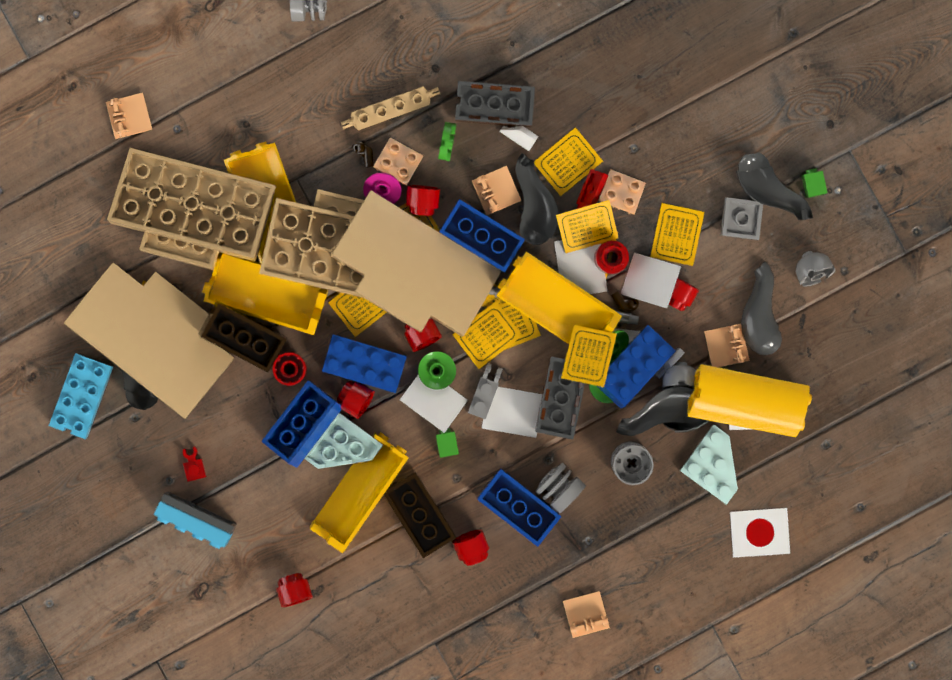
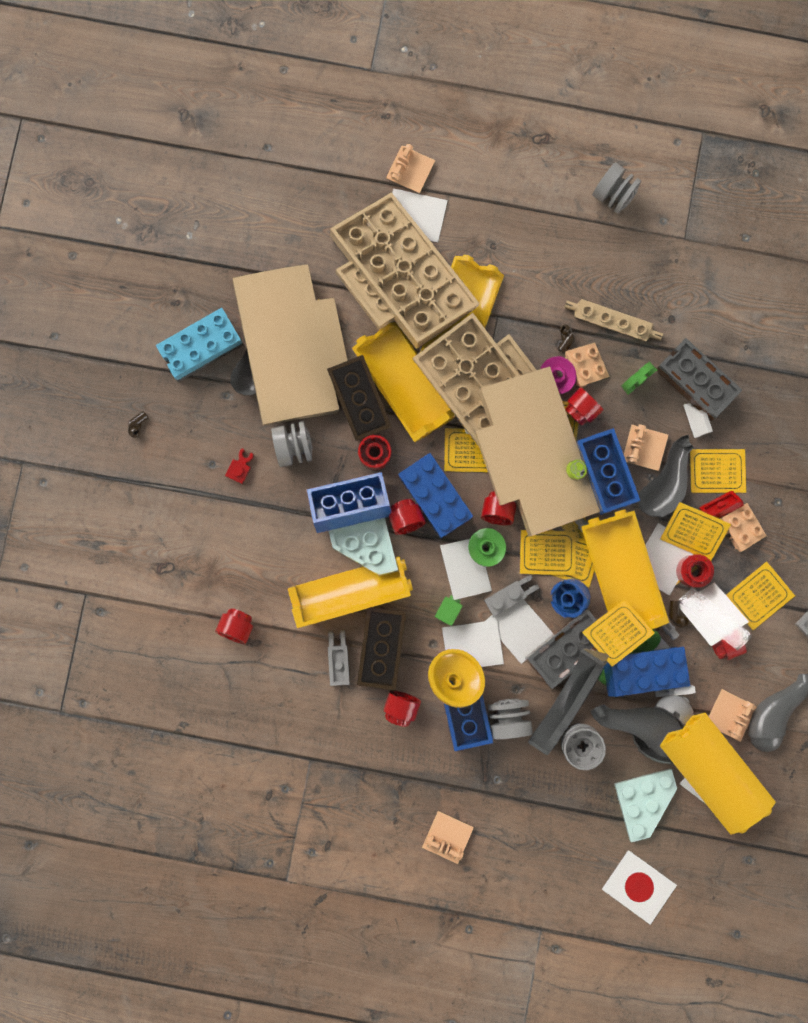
camera: 40 degrees right, 5 degrees down
(82, 498) = (134, 426): none -> dark brown arm
(168, 141) = (424, 210): none -> white sticker
(194, 519) = (205, 507): medium azure piece -> none
(220, 415) = (292, 444): none -> light grey wheel
(394, 551) = (338, 661): none -> light grey hinge
(456, 255) = (576, 469): none -> lime tile
(487, 453) = (477, 639): none -> white sticker
(497, 482) = (465, 674): none -> yellow dish
(532, 357) = (570, 598): none -> blue cylinder
(595, 438) = (569, 700): none -> dark grey windscreen
(654, 283) = (715, 618): none -> clear tile

